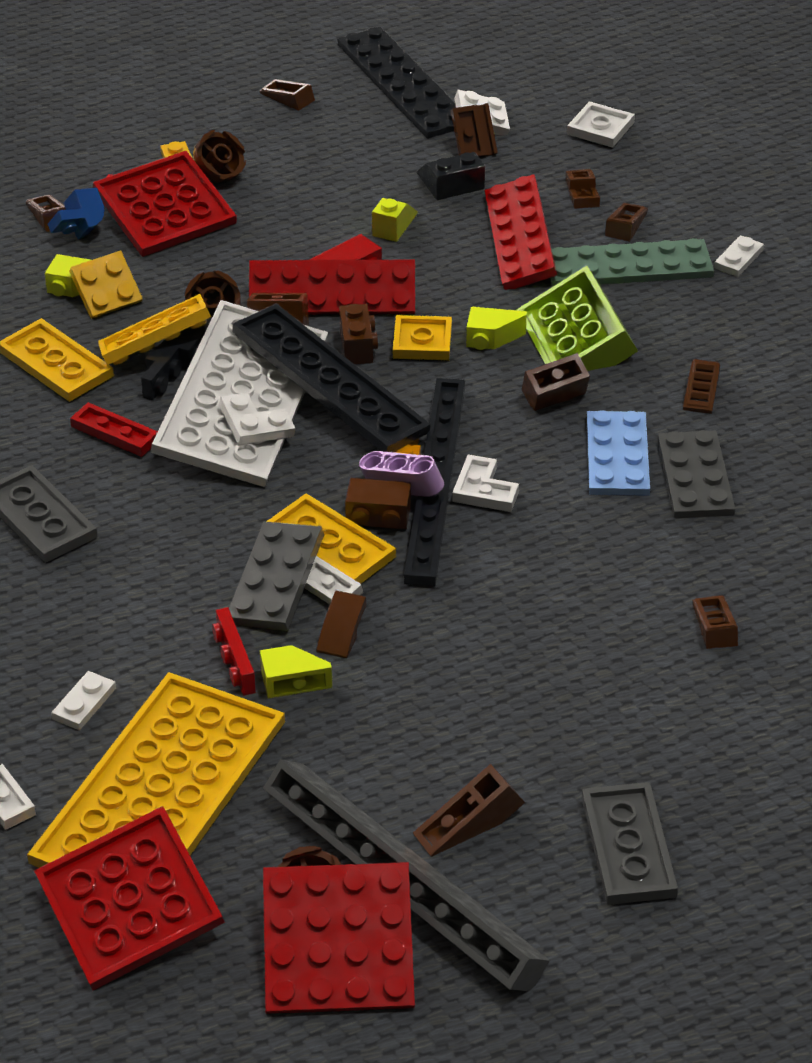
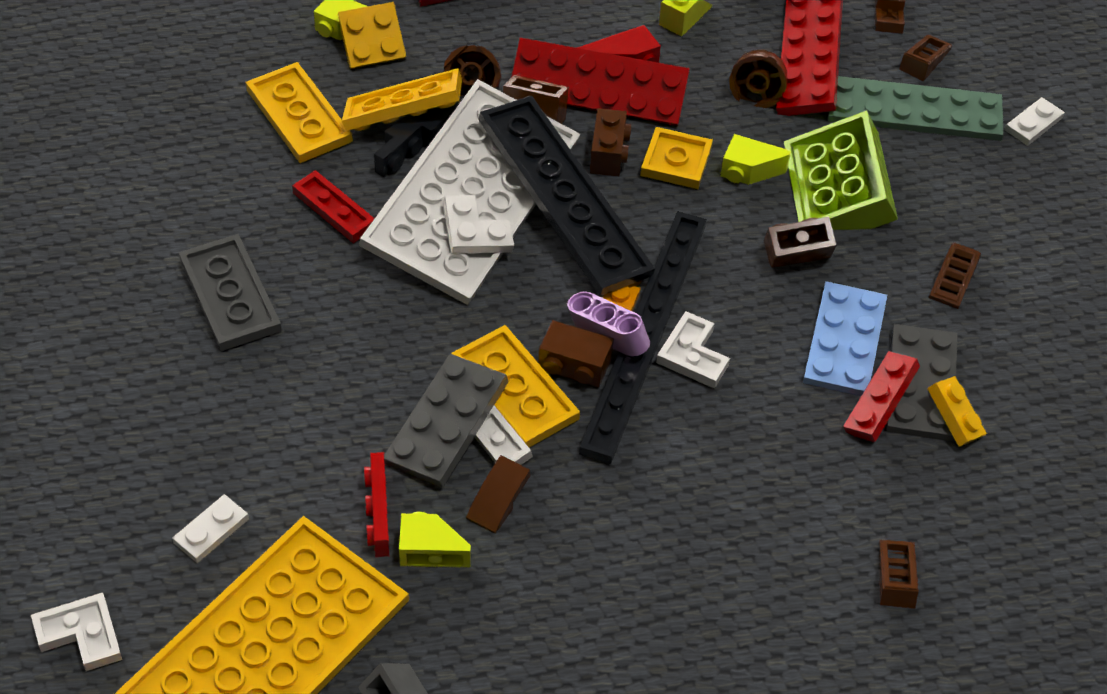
camera: 10 degrees right, 10 degrees up
(481, 255) = (760, 73): none -> reddish brown cylinder
(663, 488) = (881, 396): none -> plate
(733, 487) = (957, 411): none -> yellow plate

